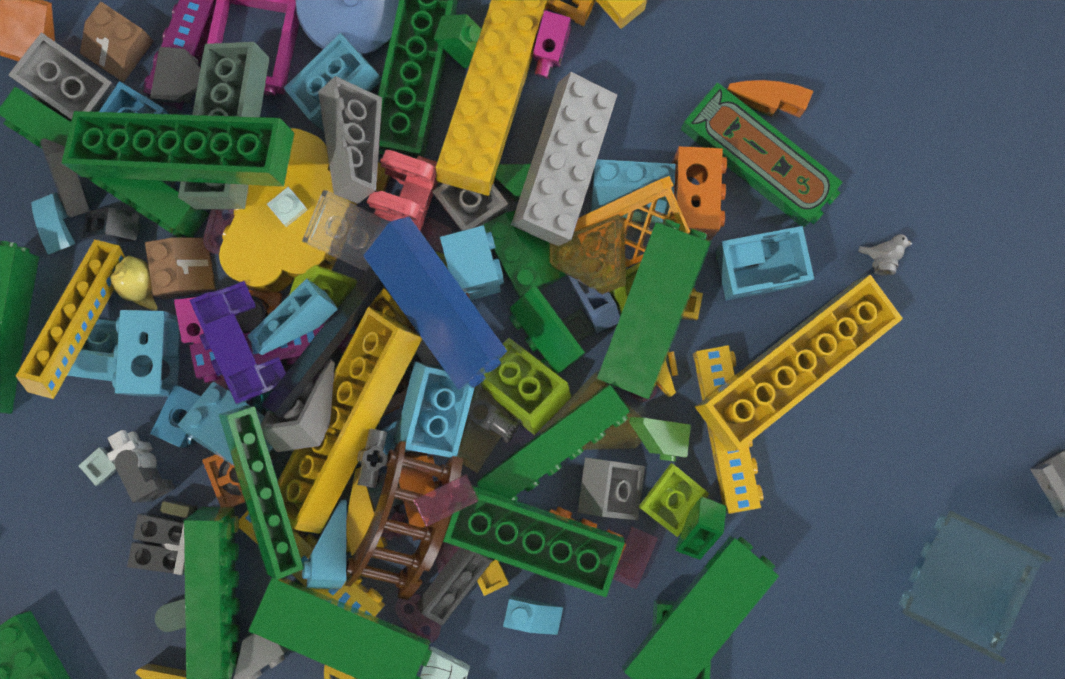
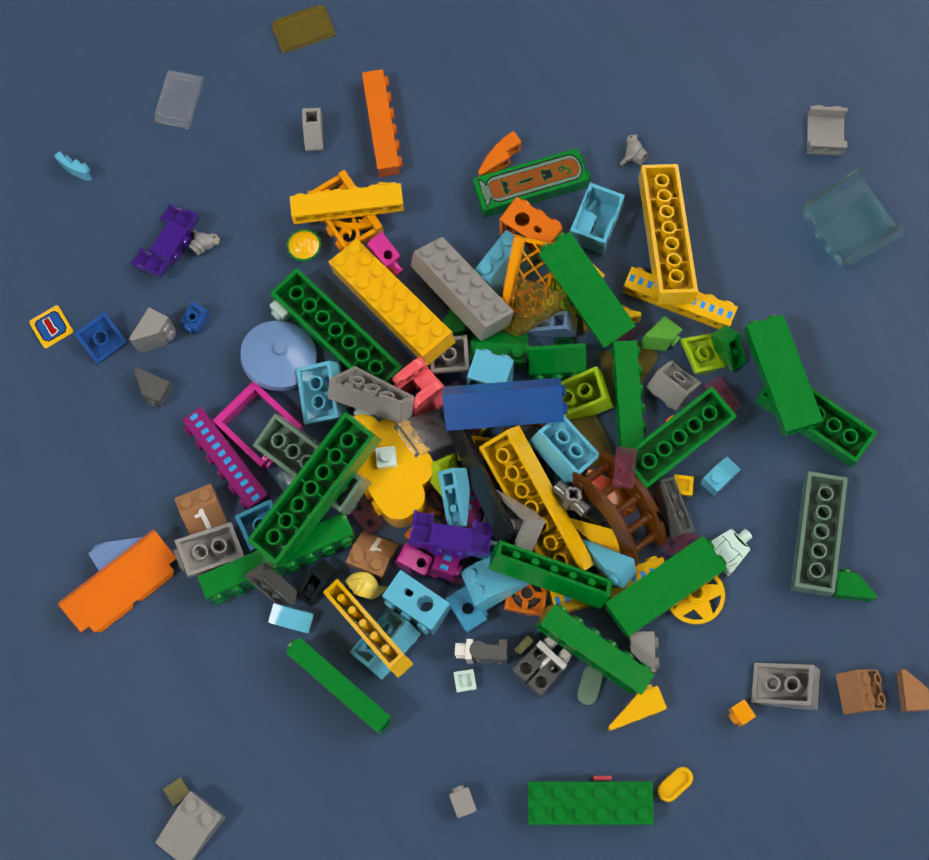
camera: 55 degrees left, 10 degrees down
(175, 76) = (255, 479): dark grey slope -> none
(458, 37) = (348, 301): green slope -> none
(494, 420) = (592, 423): dark grey connector -> none

